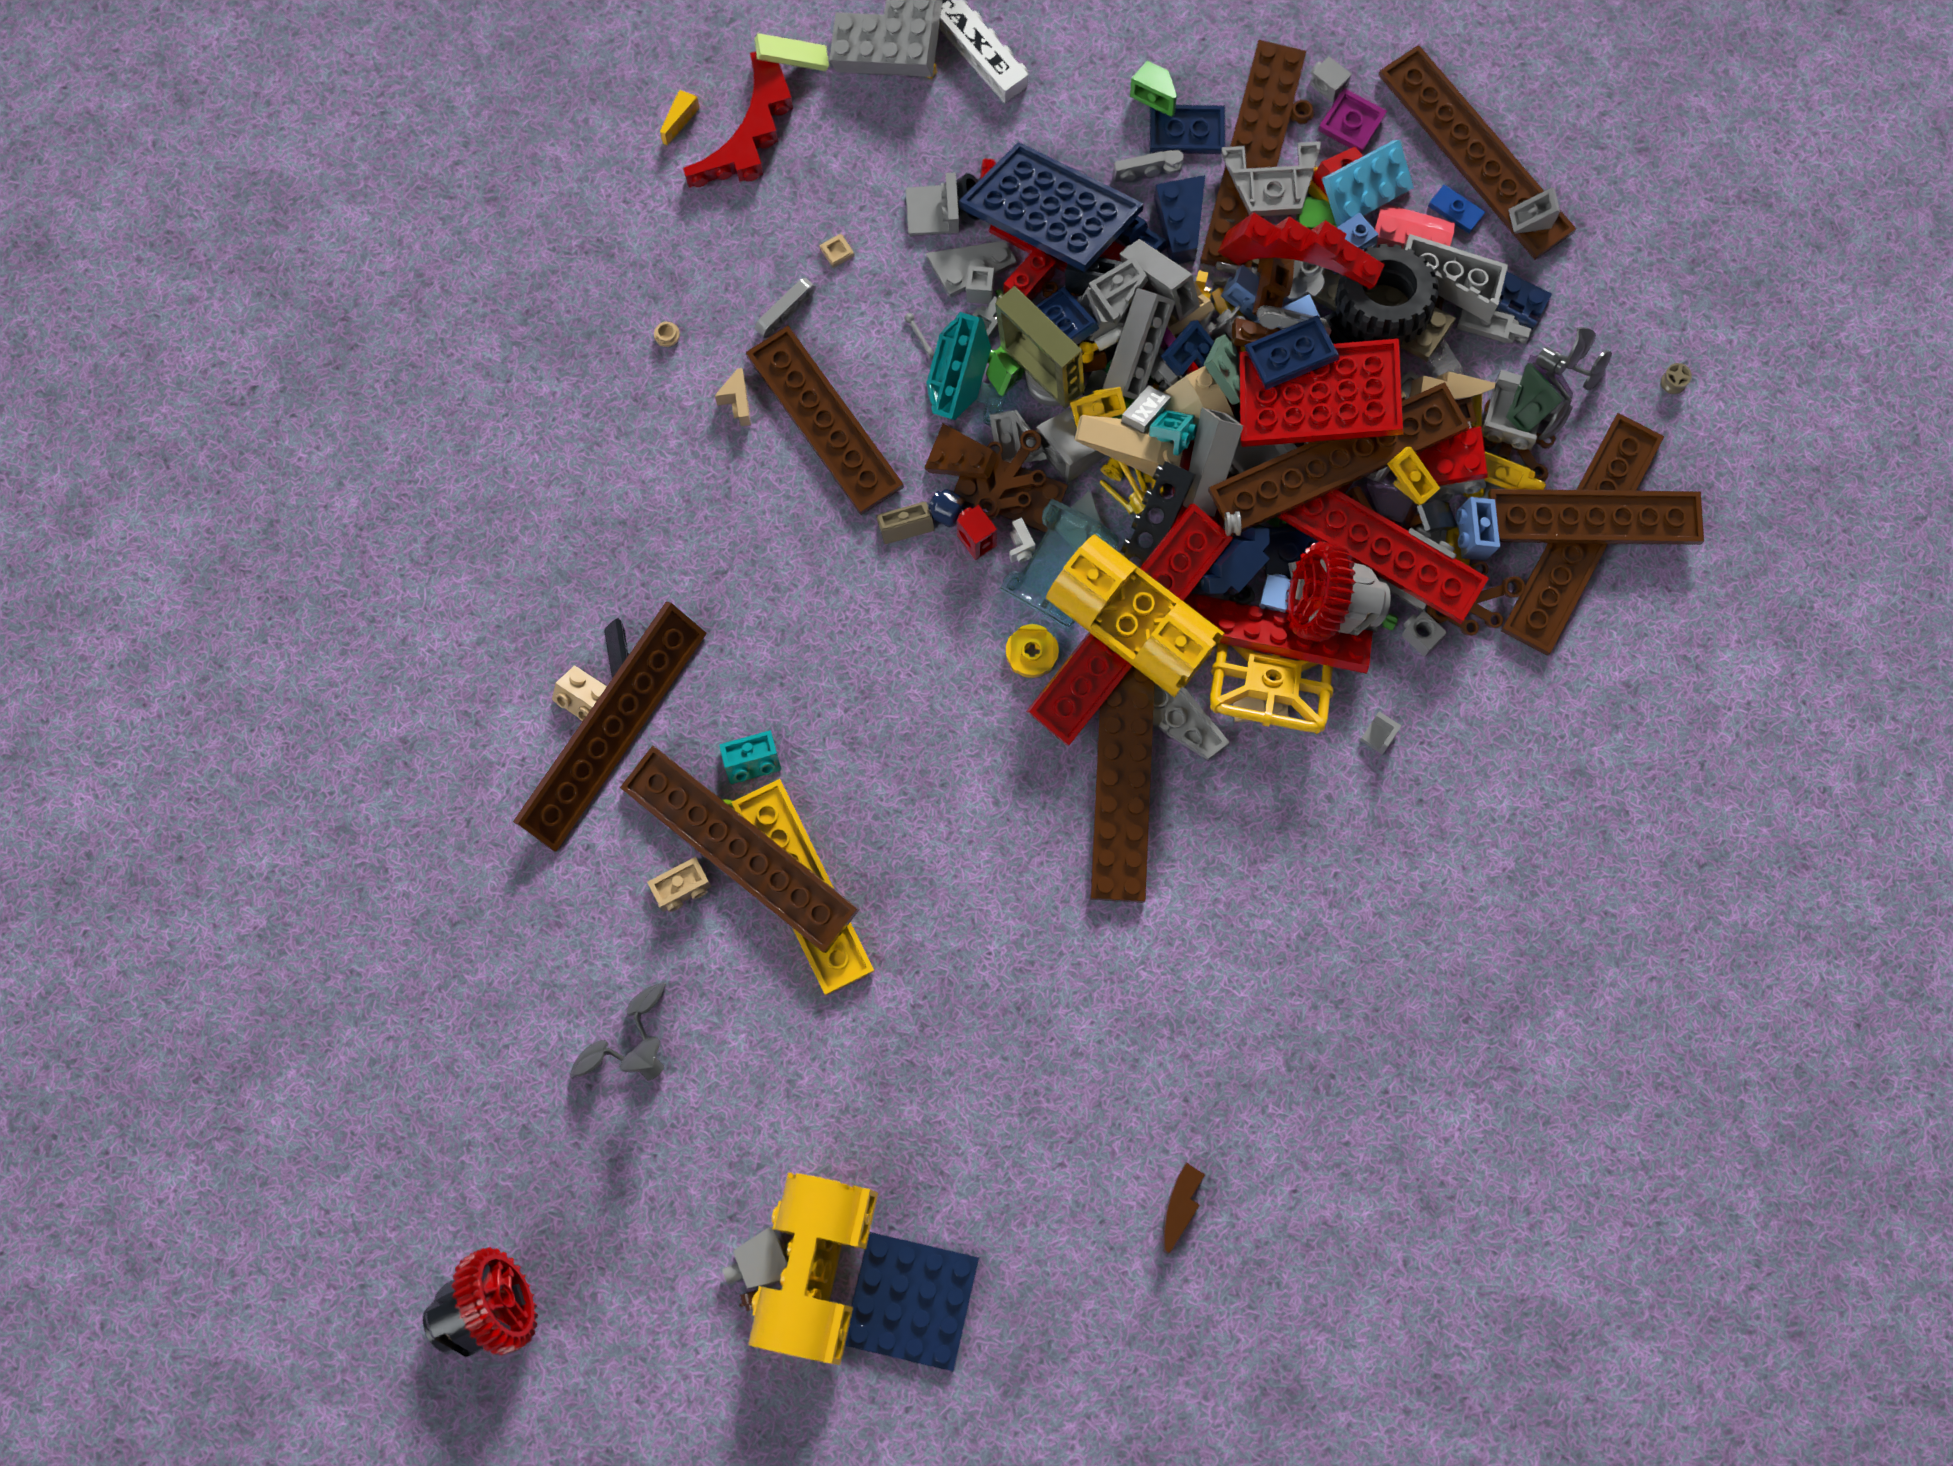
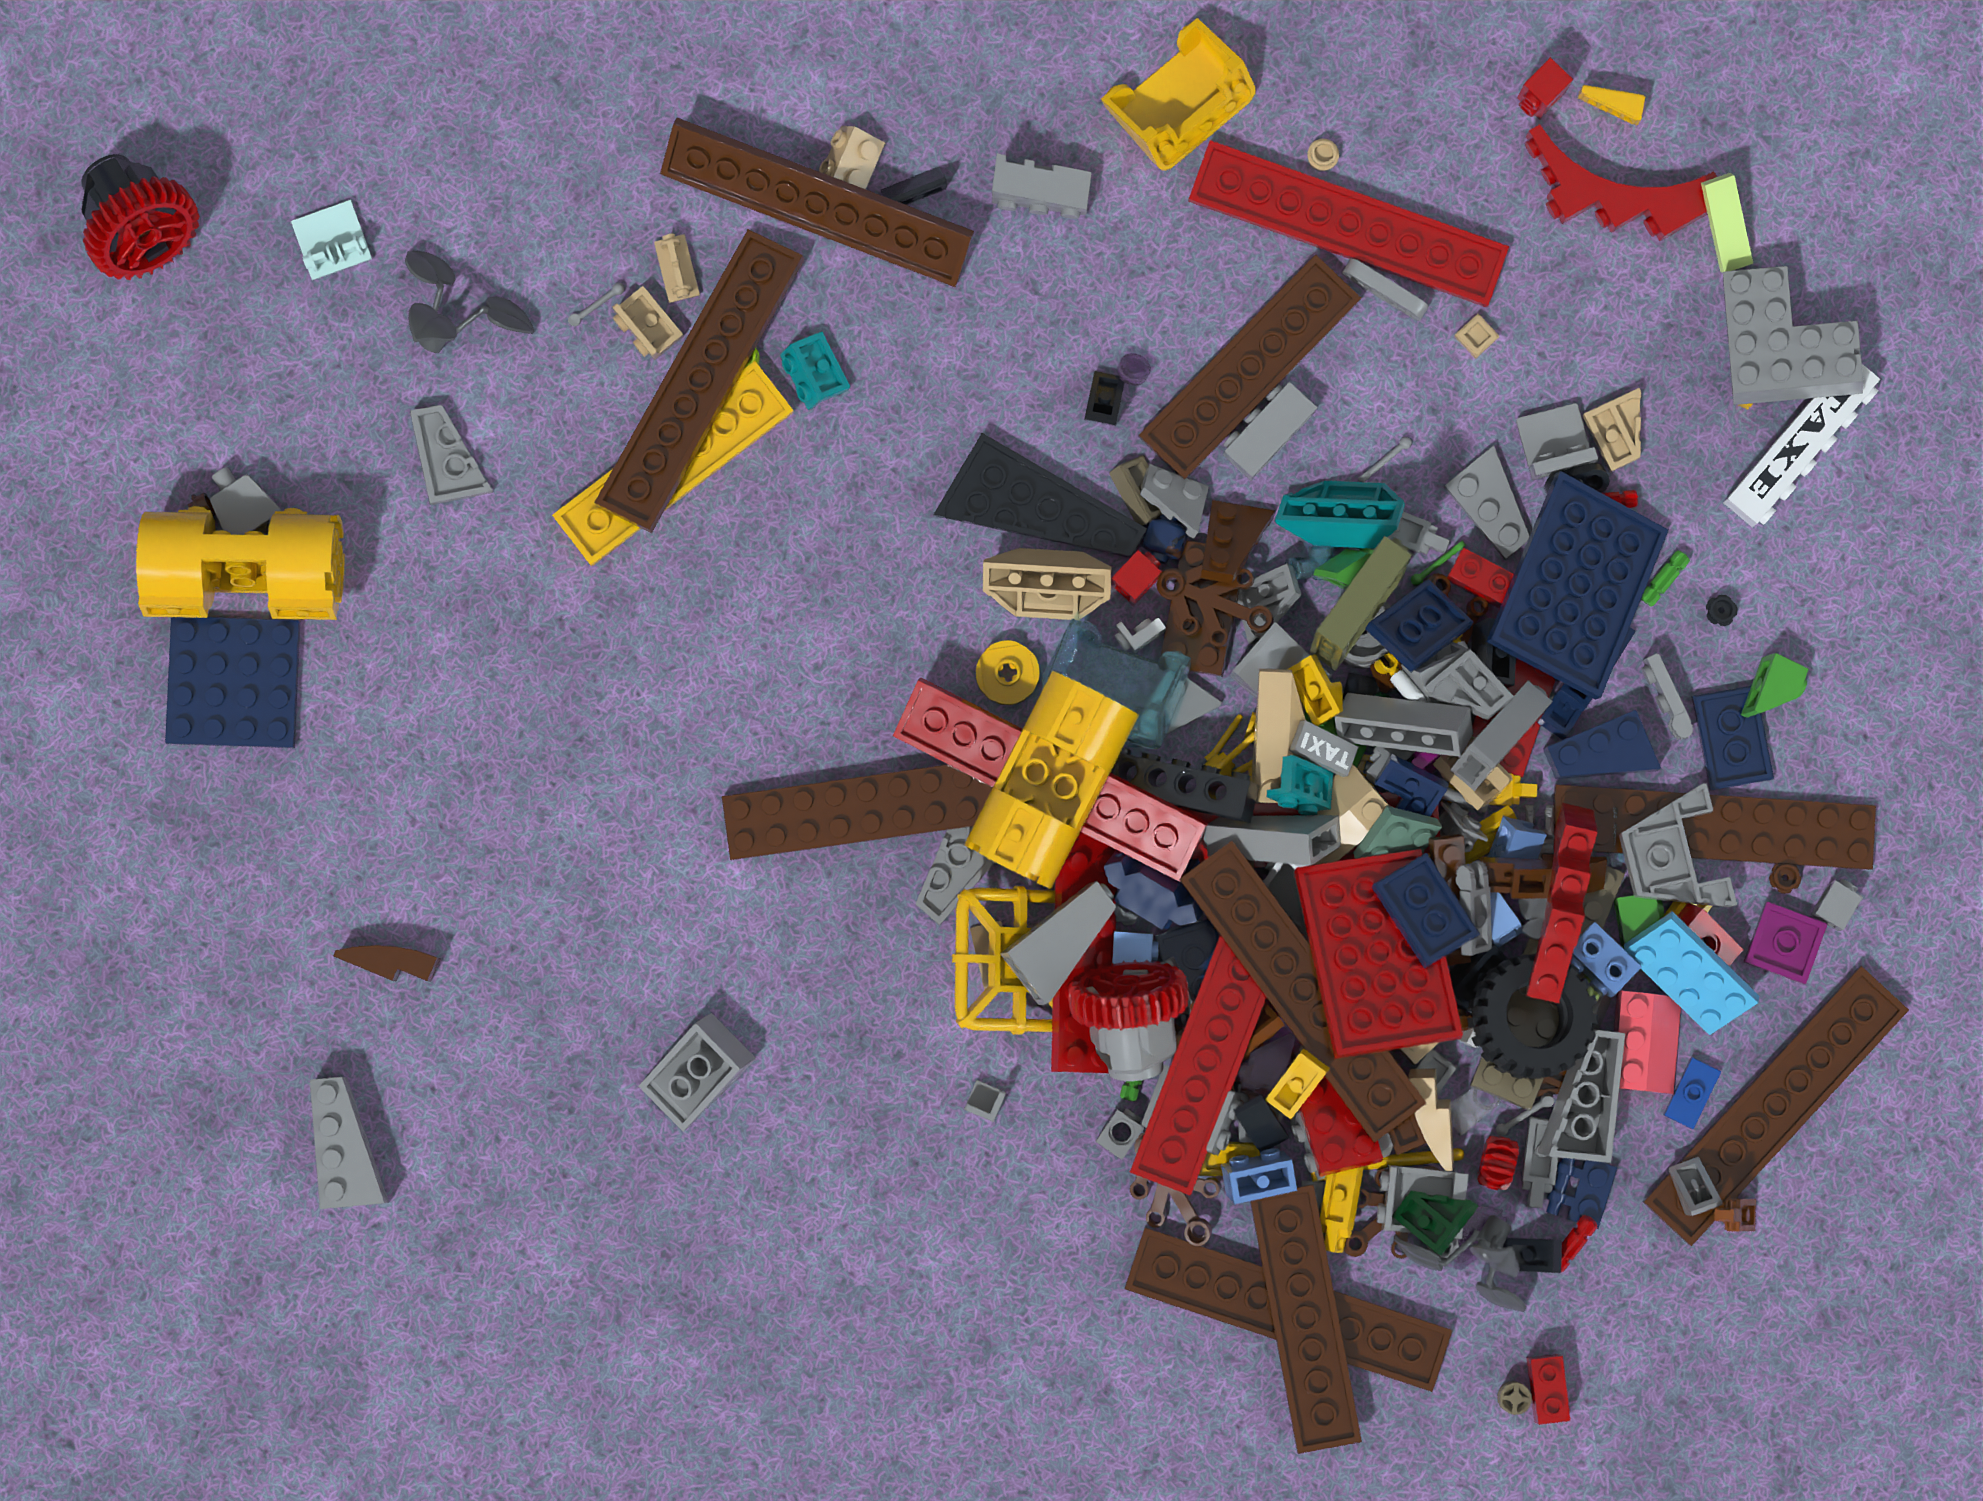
camera: 80 degrees right, 10 degrees up
(544, 1141) = (331, 240): none -> light aqua hinge
(593, 426) = (1184, 97): none -> yellow windscreen
(638, 853) = (676, 267): none -> tan hinge
(641, 549) = (1040, 188): none -> light grey wedge
(656, 158) = (1544, 89): none -> red brick
(661, 946) = (575, 319): none -> light grey hinge
(725, 326) = (1348, 223): none -> red plate
(735, 393) = (1265, 255): tan slope -> none
(757, 1078) = (444, 459): none -> light grey wing
(806, 507) = (1133, 369): none -> clear purple tile
(826, 532) = (1104, 398): none -> black slope
(878, 414) = (1268, 430): none -> light grey brick
(890, 613) = (1017, 496): none -> black wing
(916, 492) = (1175, 496): none -> light grey wing
(932, 162) = (1617, 429): none -> tan wing
(966, 601) = (1047, 582): none -> tan wedge
(980, 284) = (1462, 520): light grey panel -> none
(1052, 149) = (1665, 578): none -> bright green axle
(1088, 111) = (1727, 604): none -> black plate
(1232, 523) = (1186, 874): light grey bush -> none
(1265, 640) = (1057, 943): none -> light grey slope
(1318, 962) = (697, 1071): none -> light grey slope
(1341, 1278) = (342, 1150): none -> light grey wedge
(1463, 349) = (1546, 1101): none -> light grey hinge
(1492, 352) = (1498, 1163): none -> red gear
(1561, 312) = (1577, 1239): none -> red axle
(1562, 185) = (1737, 1214): none -> dark orange hinge
(1566, 334) = (1536, 1254): none -> black slope
(1667, 348) = (1548, 1389): none -> red brick

